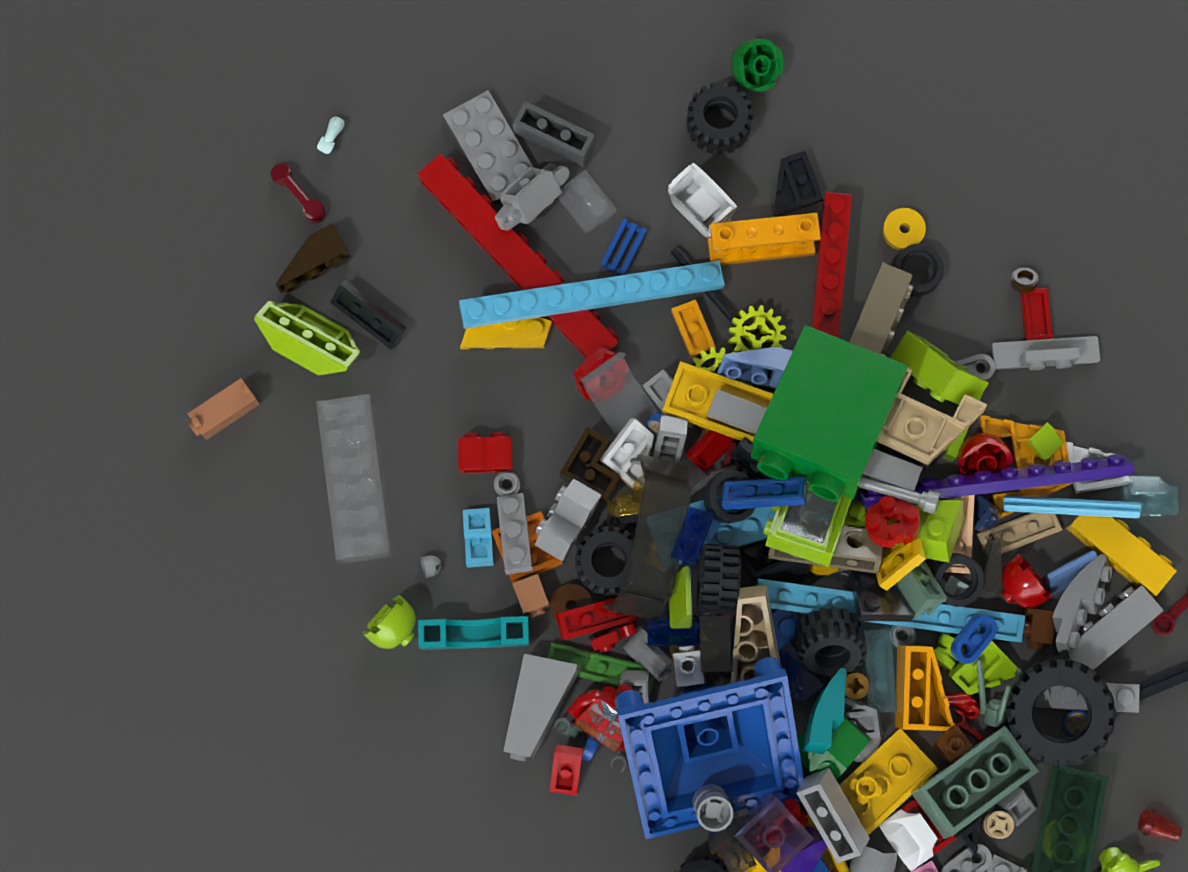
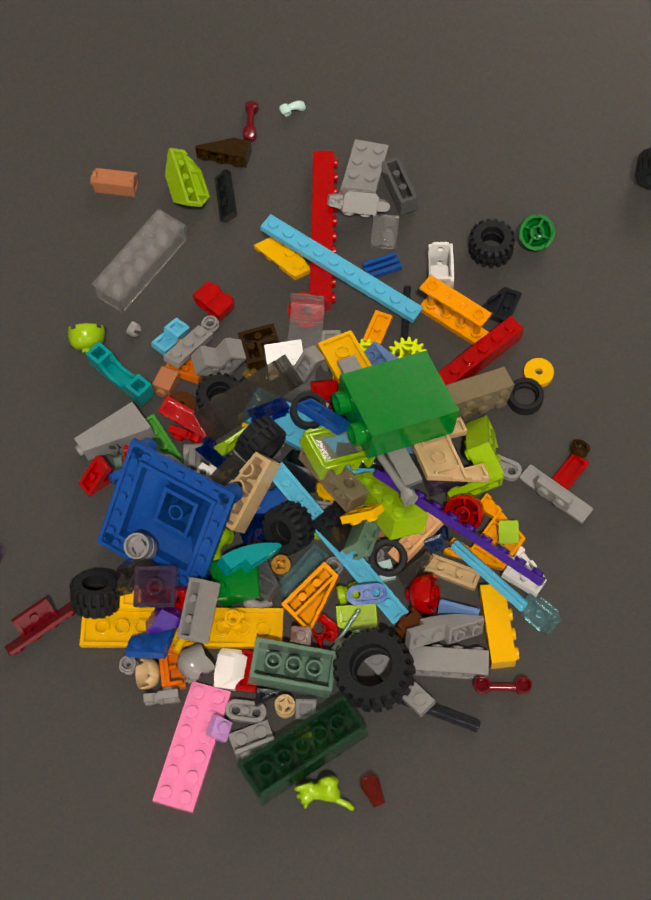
camera: 45 degrees right, 15 degrees down
(892, 510) = (377, 488): red plate -> none

